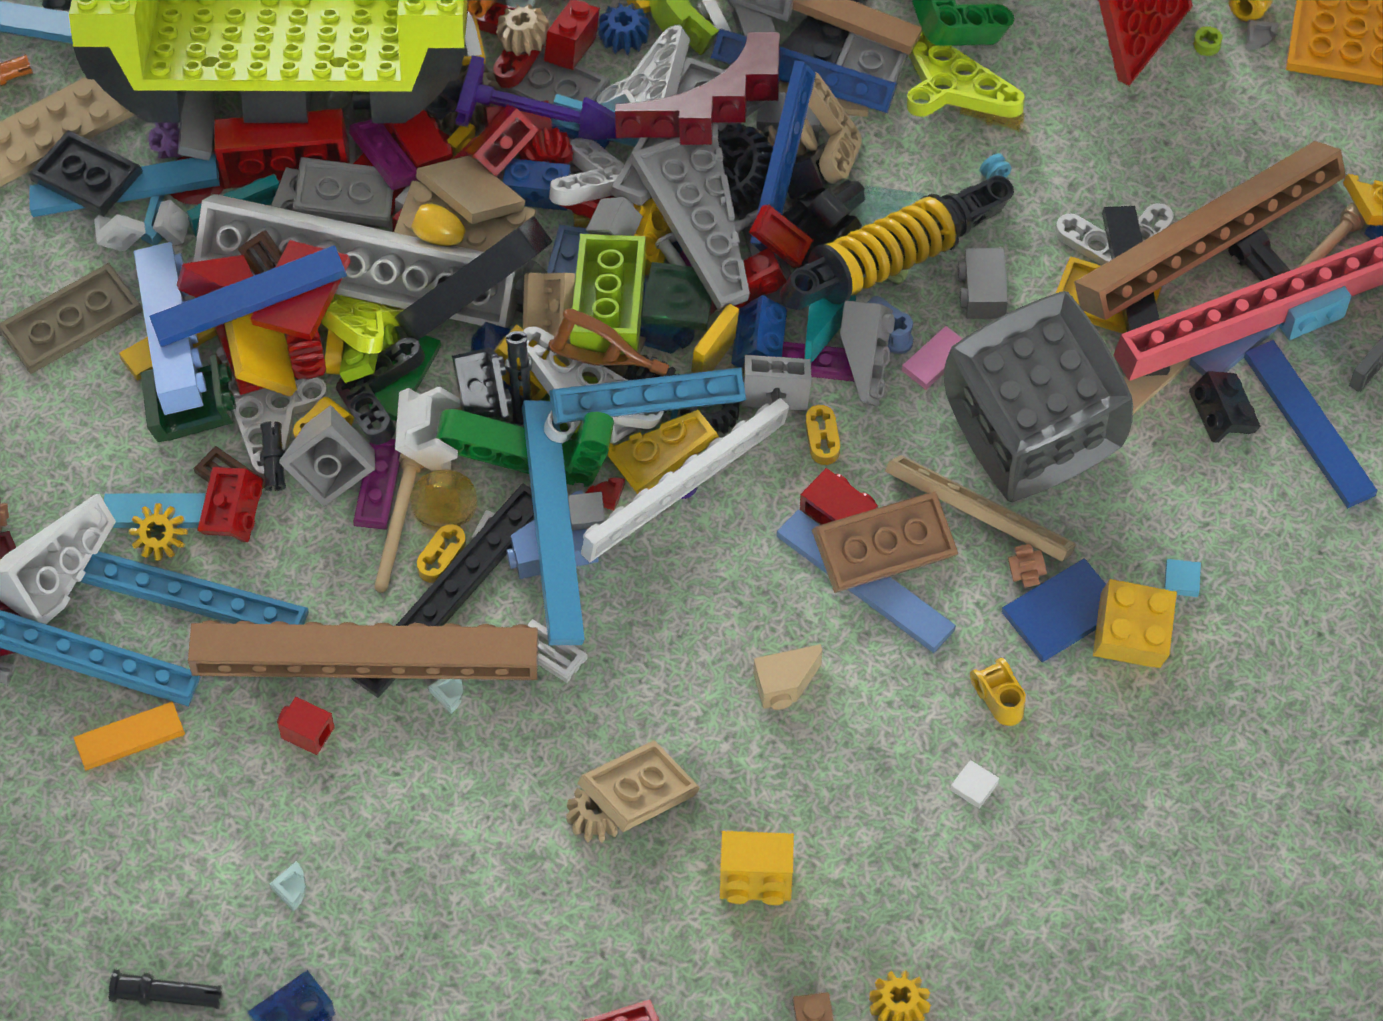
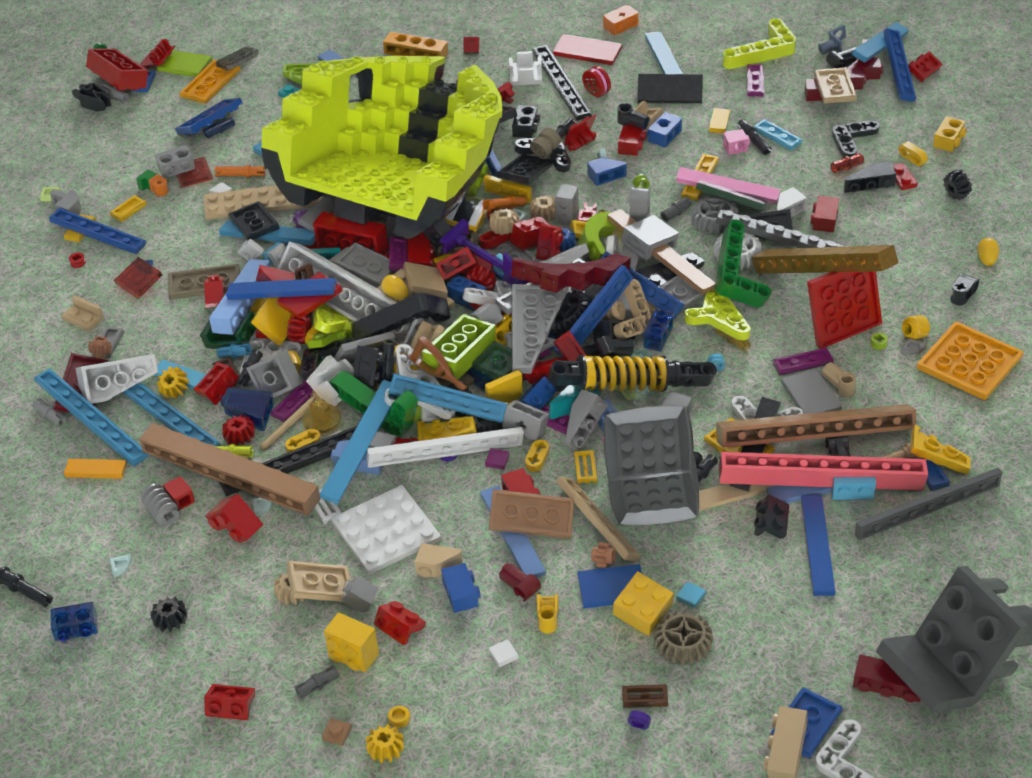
camera: 30 degrees right, 15 degrees down
(115, 336) = (214, 290): none -> red slope
(219, 433) = (234, 350): none -> dark azure axle
(288, 759) = (160, 504): none -> light grey piece
(313, 526) = (250, 404): none -> clear blue slope
(326, 575) = (238, 430): none -> red gear
(350, 612) = (245, 451): none -> neon yellow pin
(432, 731) = (235, 517): none -> red brick
(439, 948) = (169, 614): none -> black gear
(446, 350) = (348, 350): none -> light grey tile
(617, 42) = (549, 241): none -> red bracket
(671, 653) = (385, 529): none -> white plate
(711, 780) = (359, 593): none -> light grey brick
(733, 947) = (317, 681): none -> dark grey pin
(765, 464) = (497, 459): none -> magenta tile
(792, 799) = (398, 621): none -> red bracket
(850, 705) = (460, 587): none -> blue brick
(878, 143) = (658, 330): none -> clear blue brick
(887, 949) = (398, 716): none -> yellow tile
(919, 446) = (586, 478): none -> yellow tile
(938, 662) = (522, 584): none -> dark red piece
(1117, 117) = (803, 361): none -> magenta tile
(1161, 170) = (811, 392): none -> light grey tile
(1187, 778) = (645, 699): none -> reddish brown tile
(1201, 133) = (843, 381): none -> tan piece
(1211, 663) = (670, 633): none -> dark tan gear
(1230, 807) = (639, 719): none -> dark purple tile

